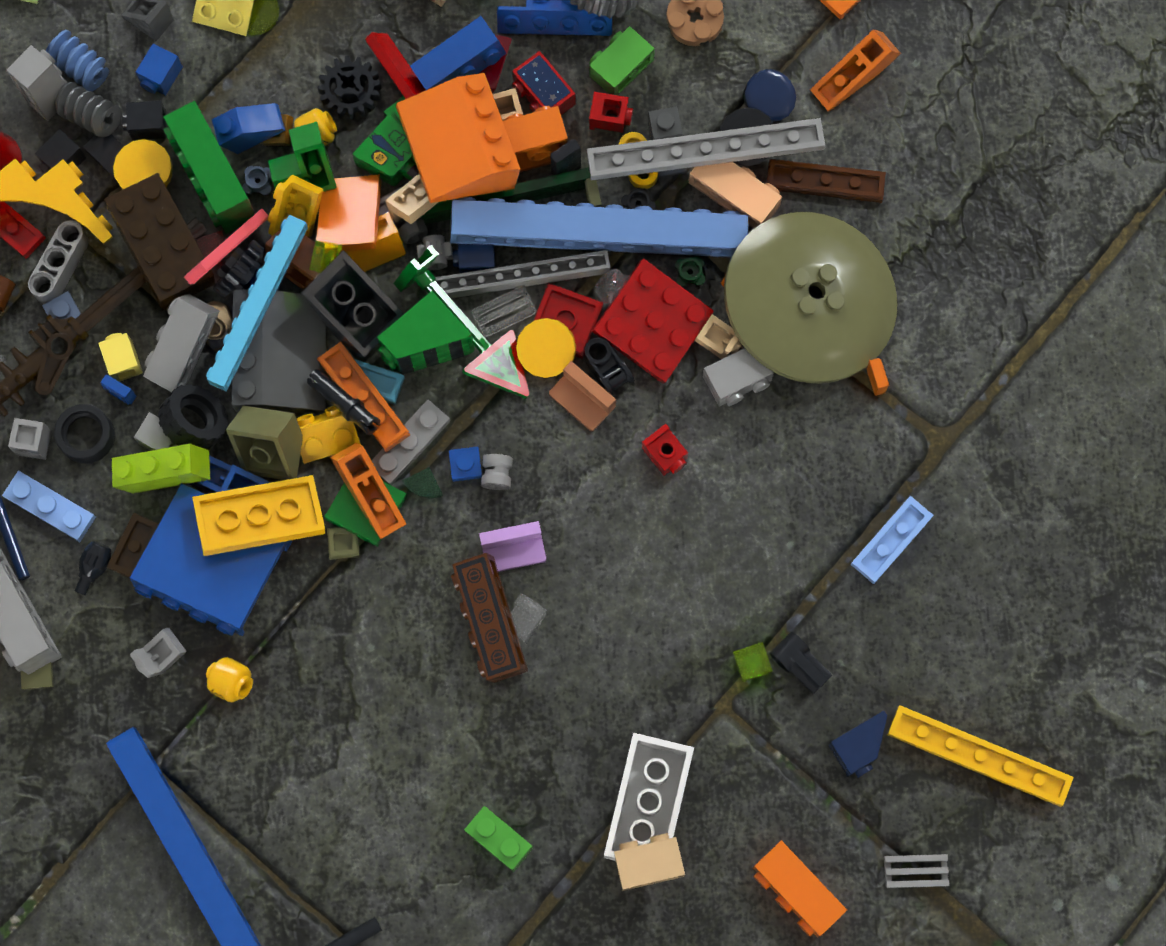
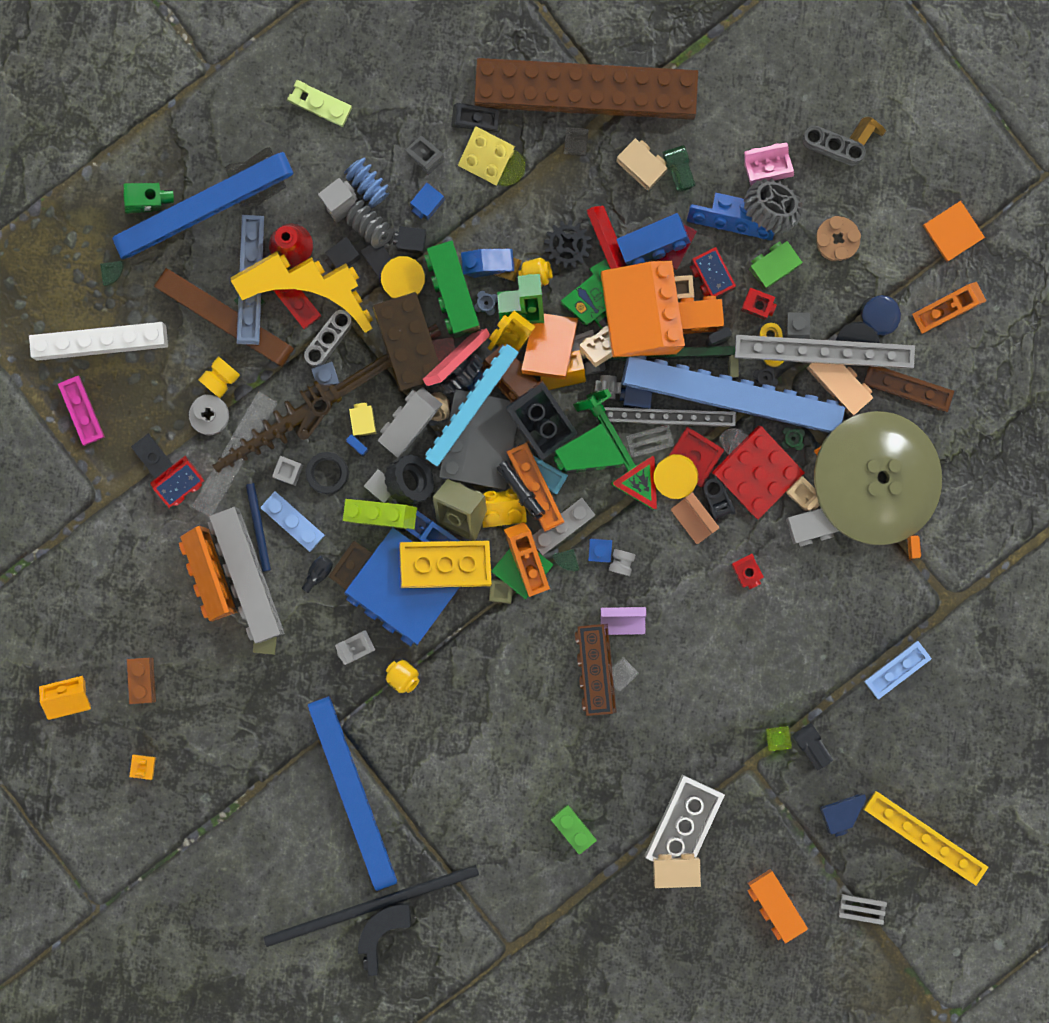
camera: 10 degrees right, 10 degrees up
(323, 254) = (528, 380): clear neon green plate -> none

